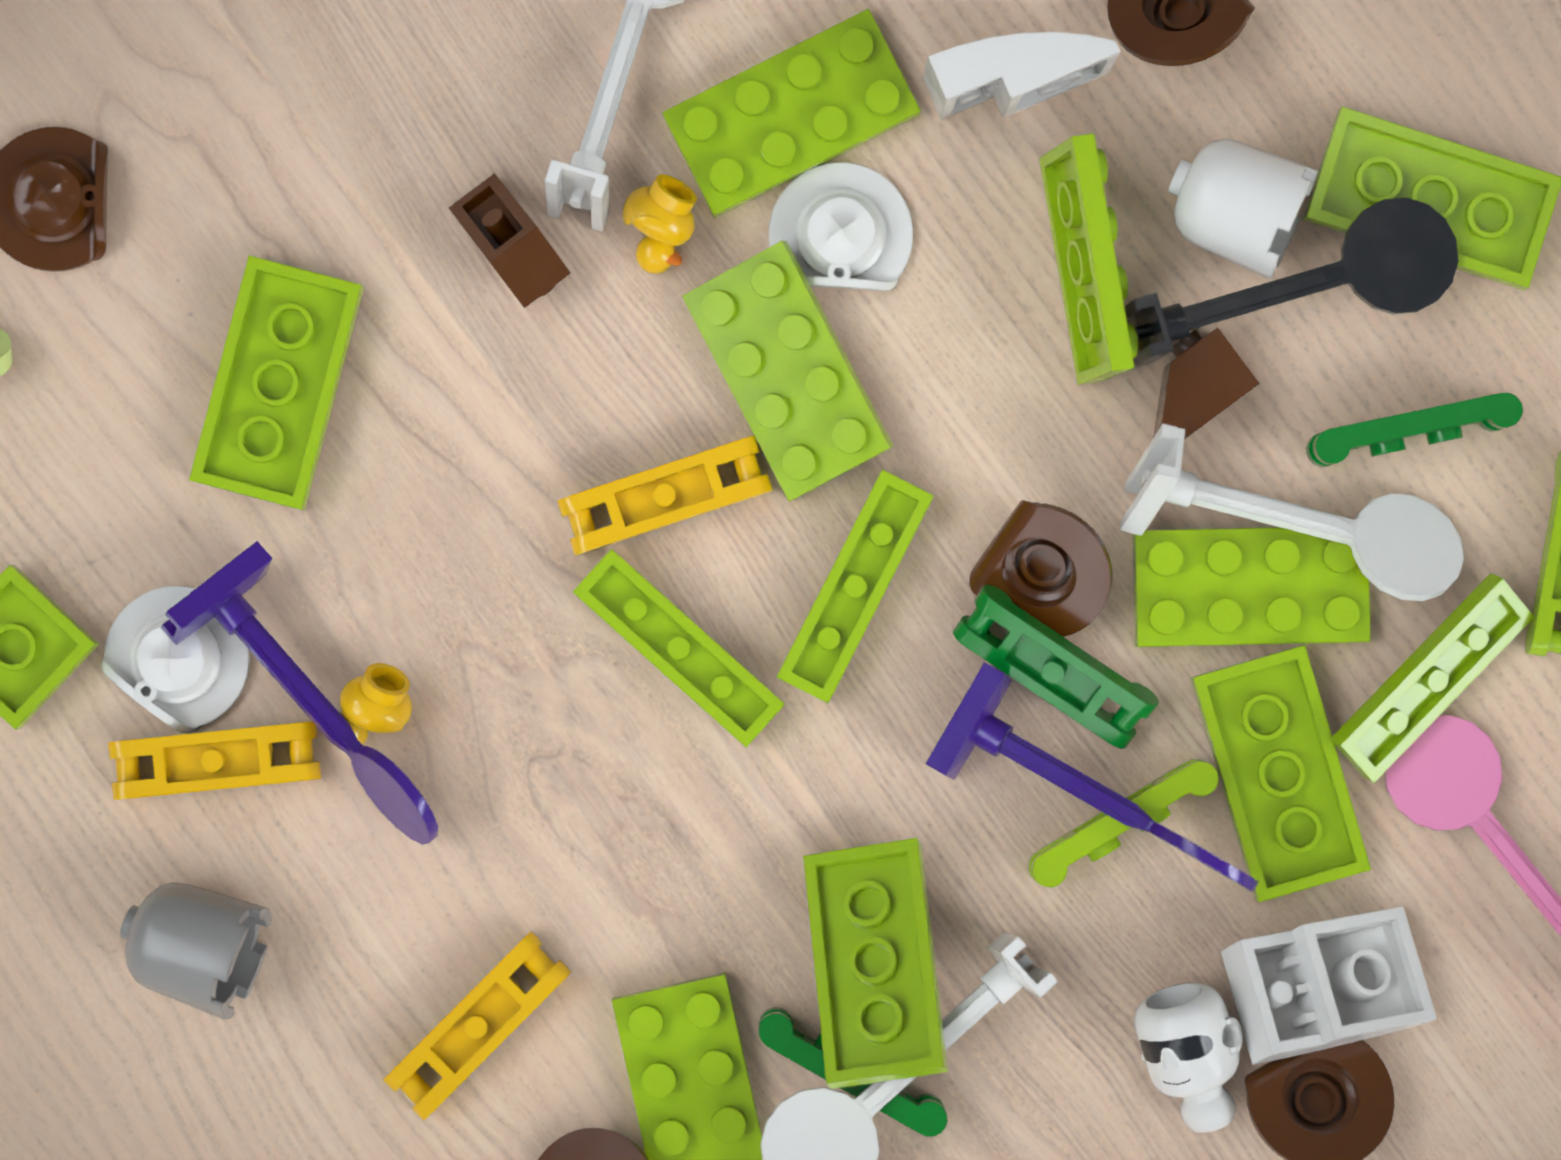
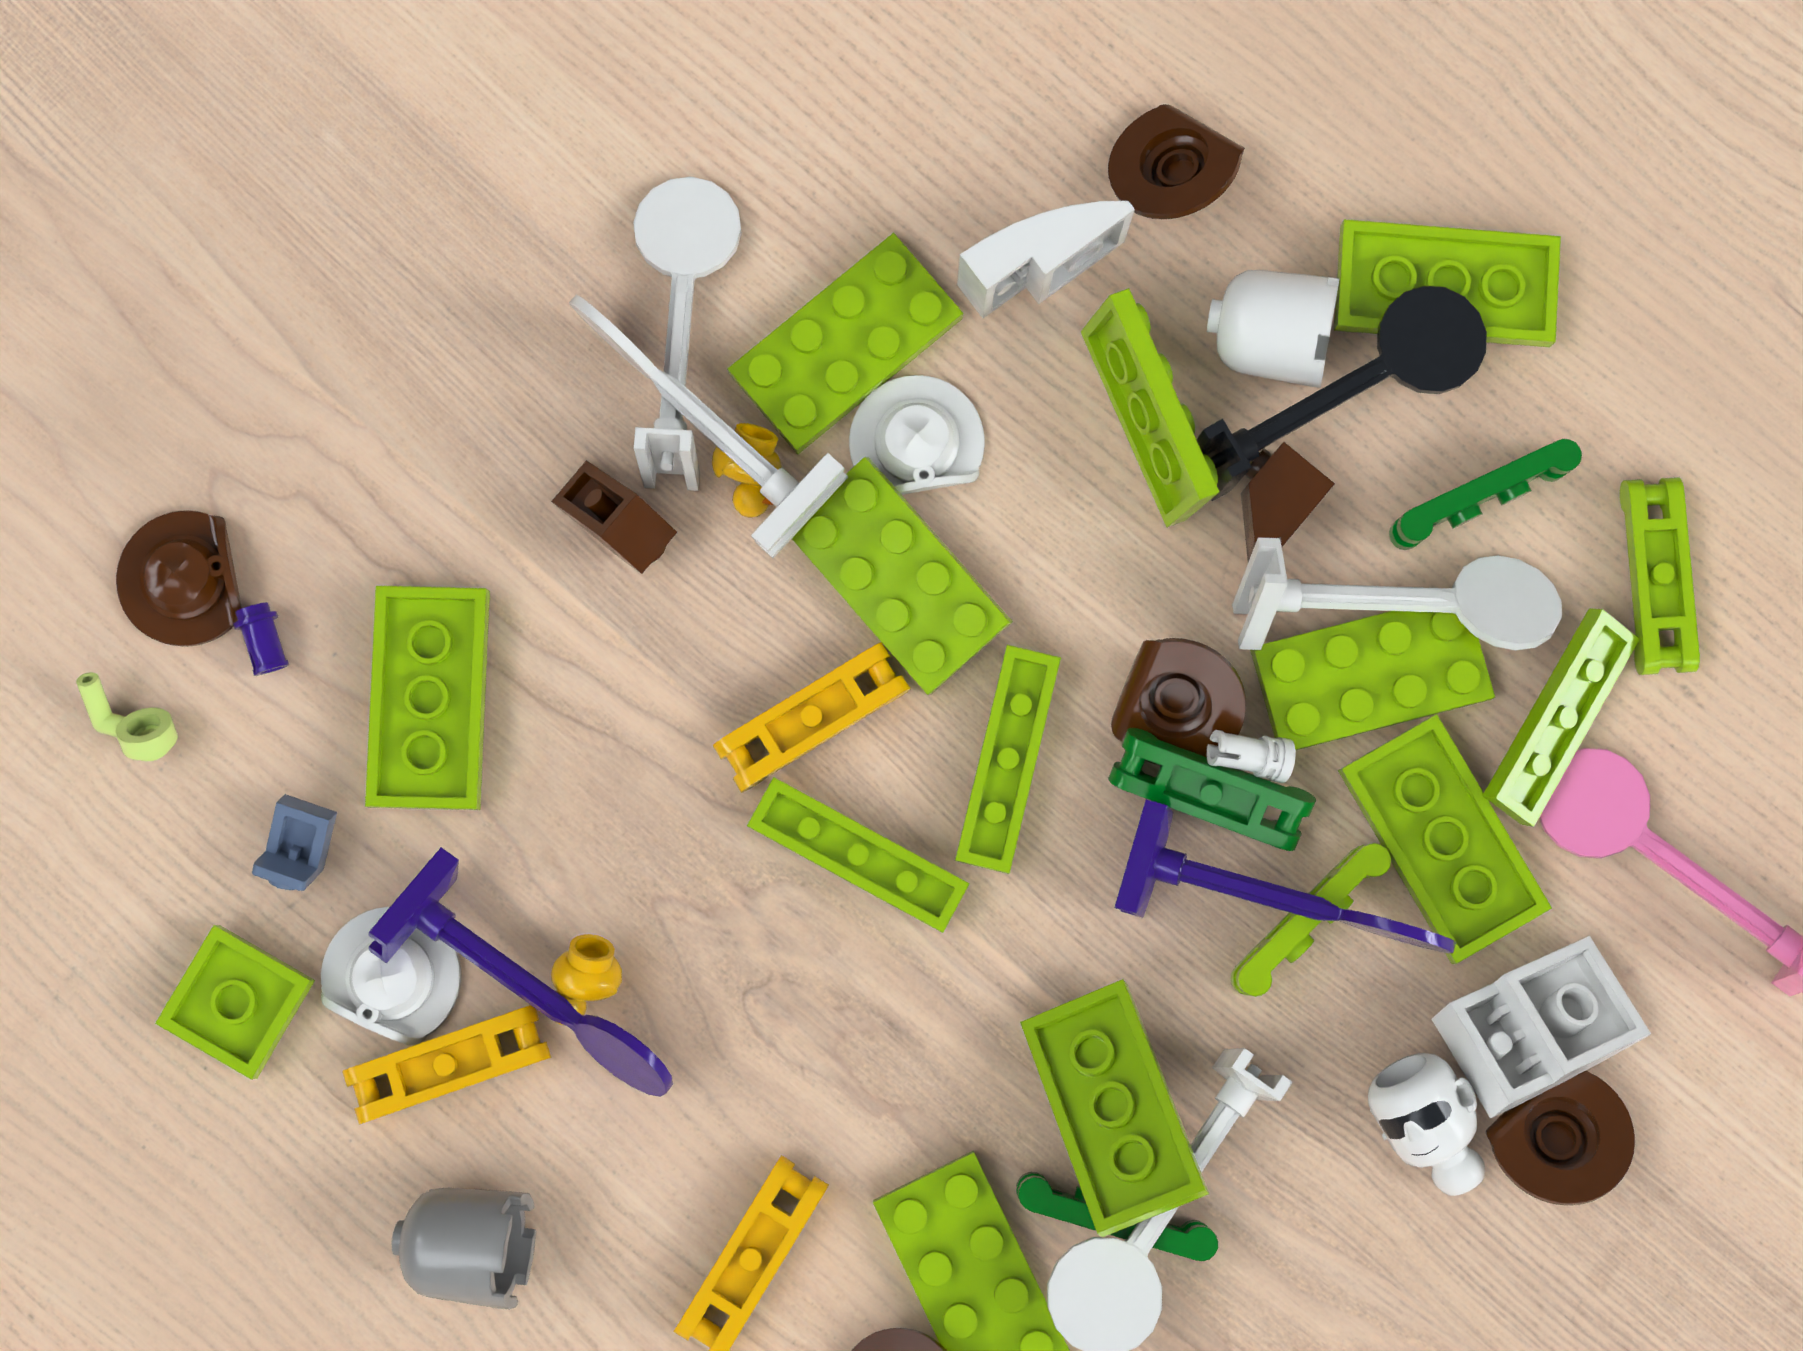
camera: 15 degrees left, 5 degrees down
(110, 502) = (296, 844): none -> sand blue bracket
(119, 281) = (261, 638): none -> dark purple pin
(696, 269) = (793, 499): none -> white piece
(1116, 647) = (1263, 756): none -> white pin

